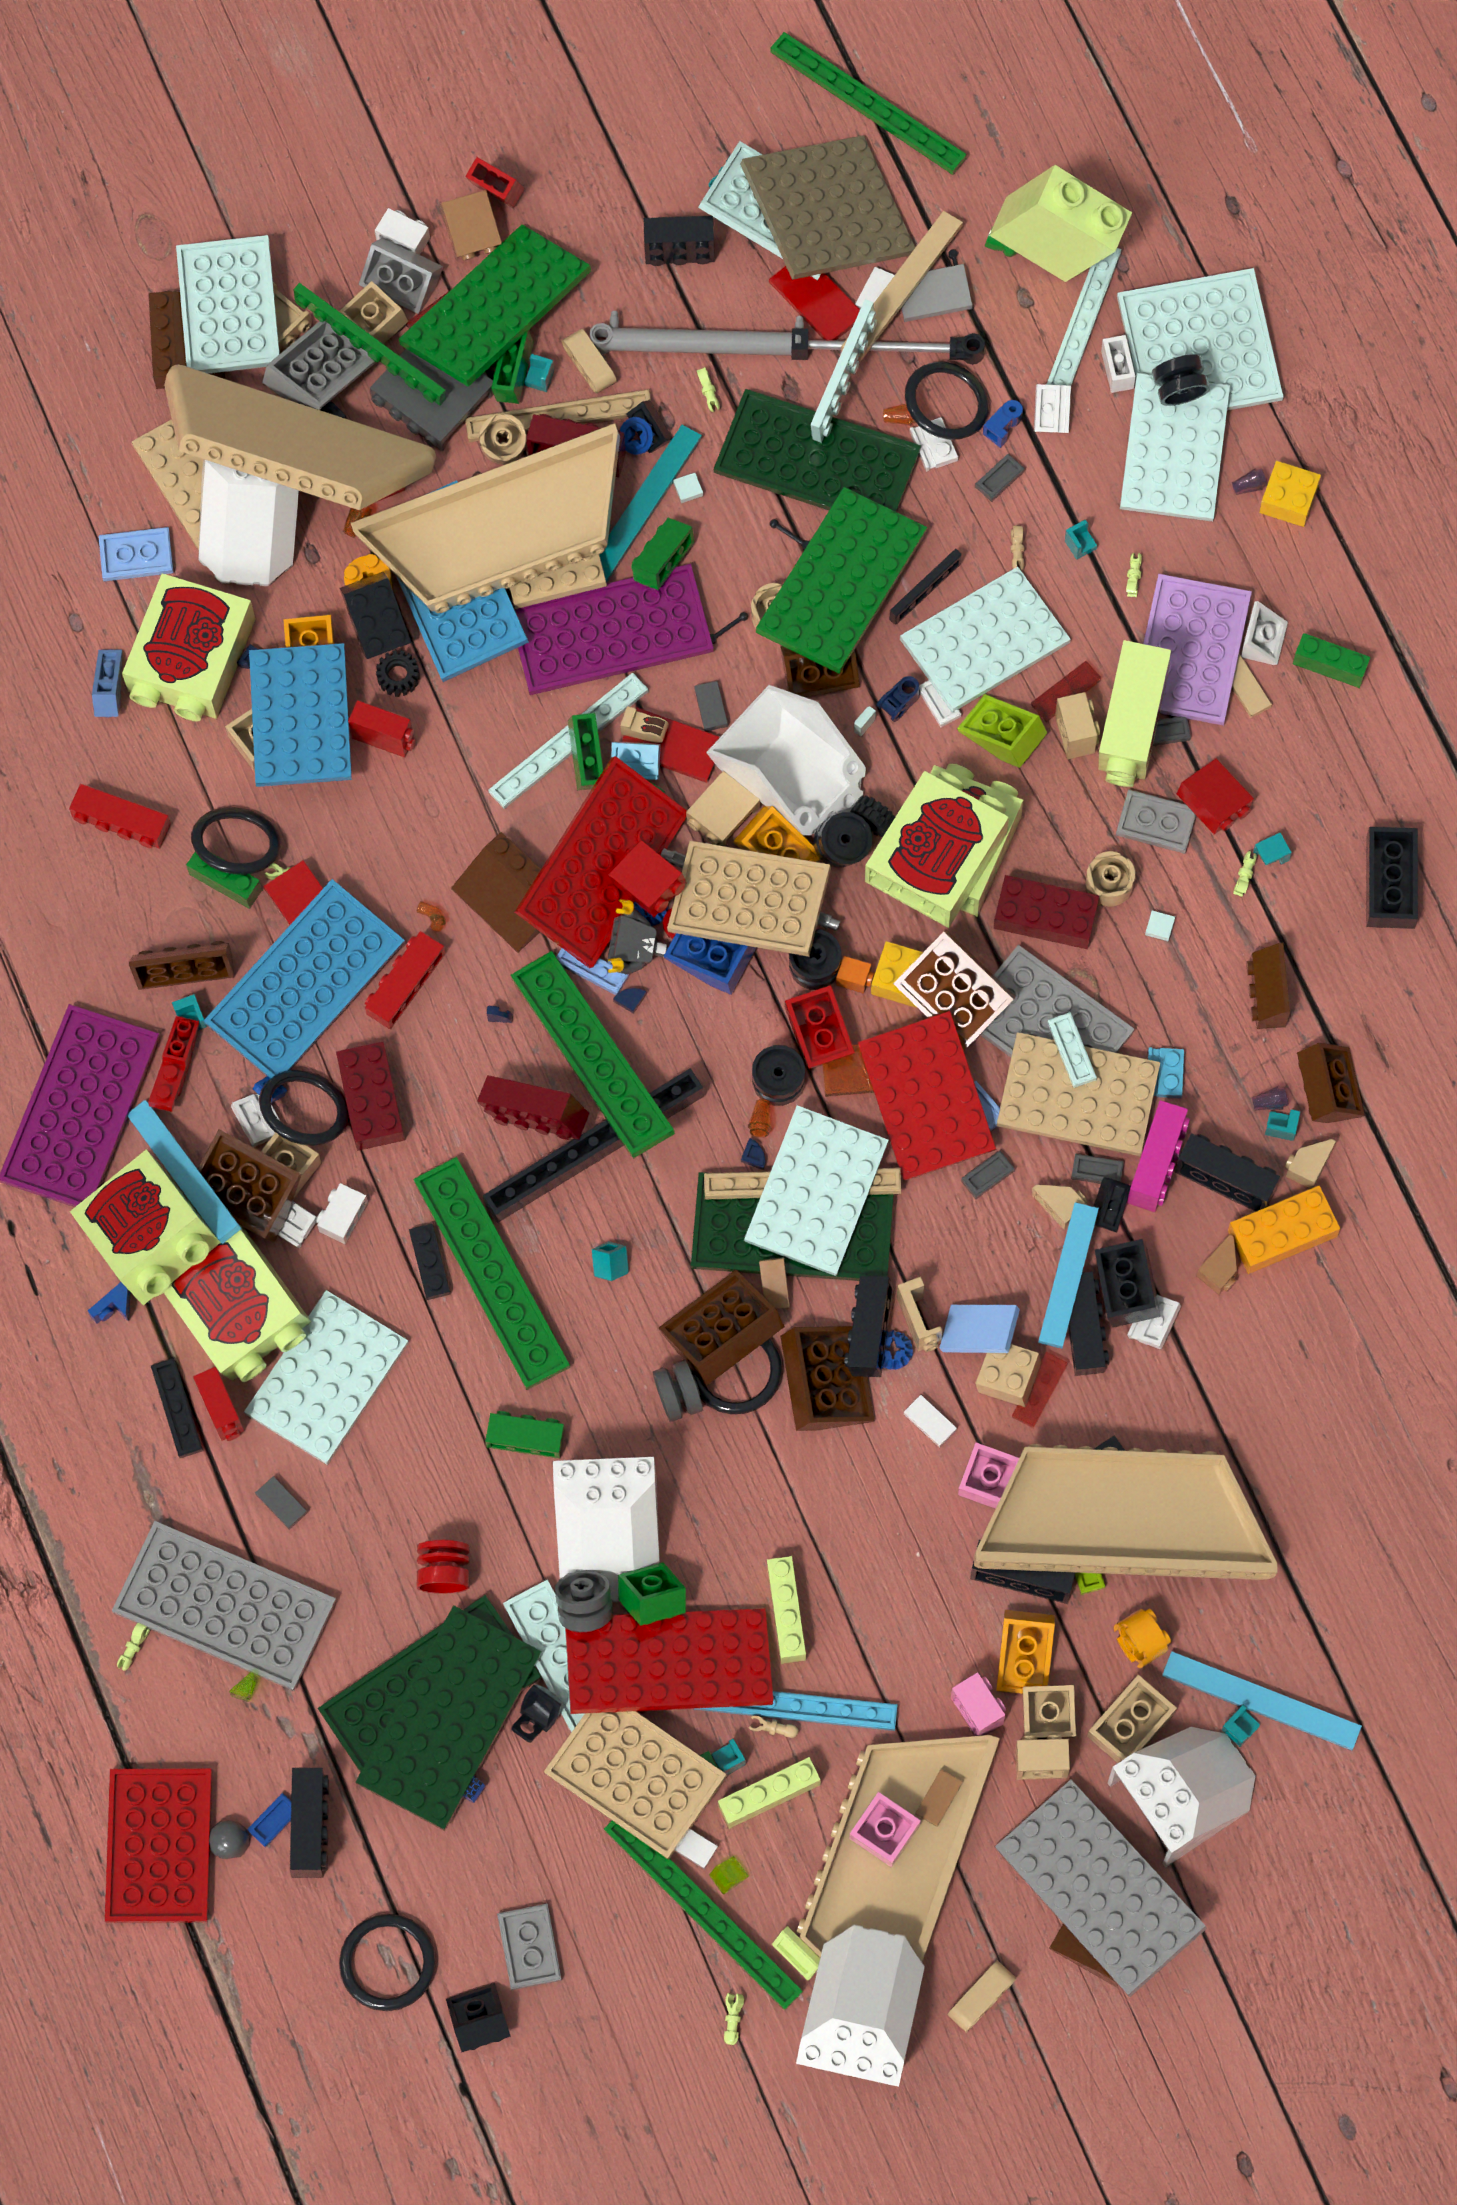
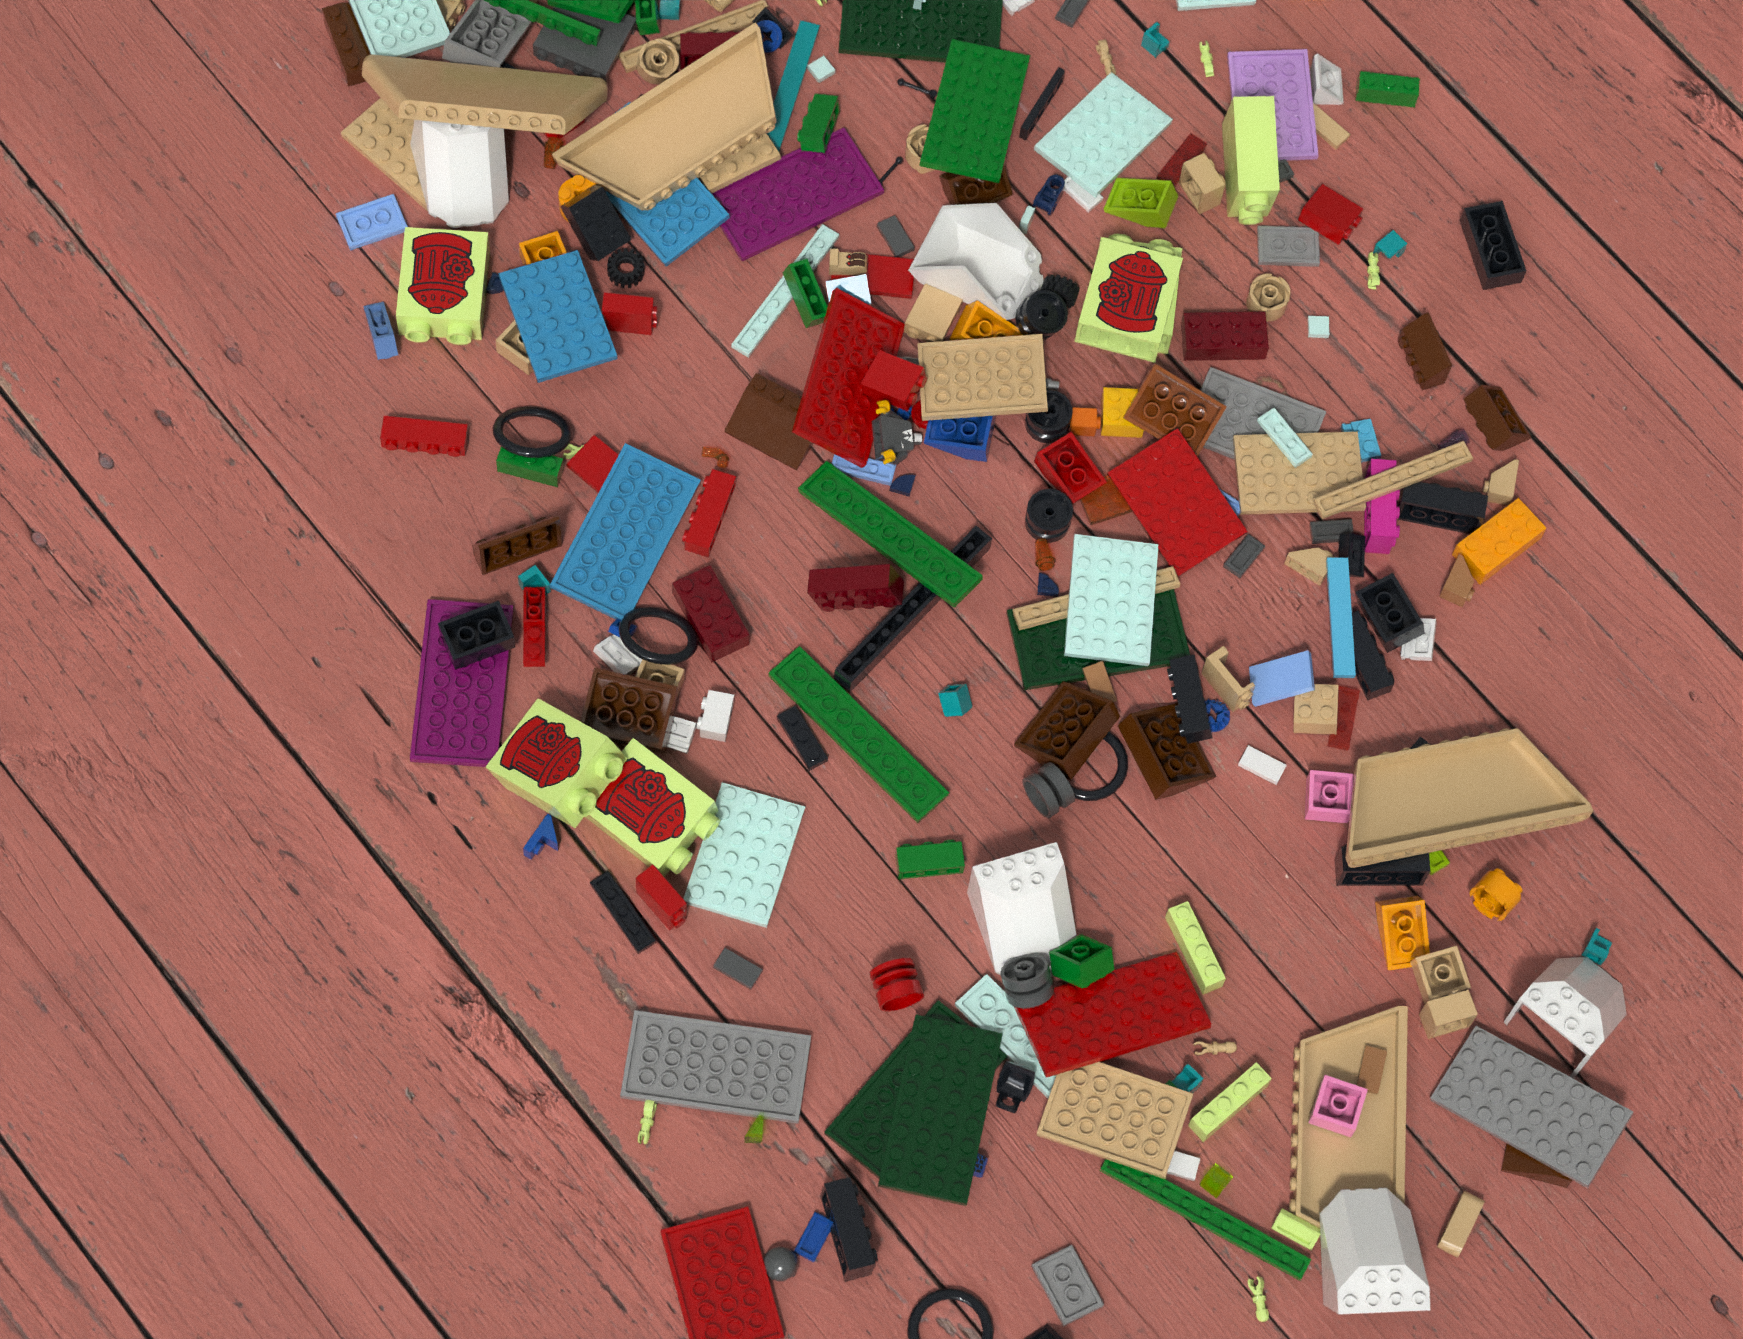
camera: 25 degrees left, 5 degrees down
(105, 1059) = (476, 635): none -> black brick
(184, 1172) = (537, 687): medium azure tile -> none
(495, 1015) = (795, 523): dark blue tile -> none
(821, 1710) = (1248, 1024): medium azure tile -> none
(978, 1705) = (1381, 983): bright pink brick -> none
(1132, 1720) = (1510, 965): tan brick -> none
(1175, 1131) = (1392, 480): none -> tan tile
(1262, 1701) = (1608, 922): medium azure tile -> none
(1282, 1125) = (1478, 460): teal panel -> none

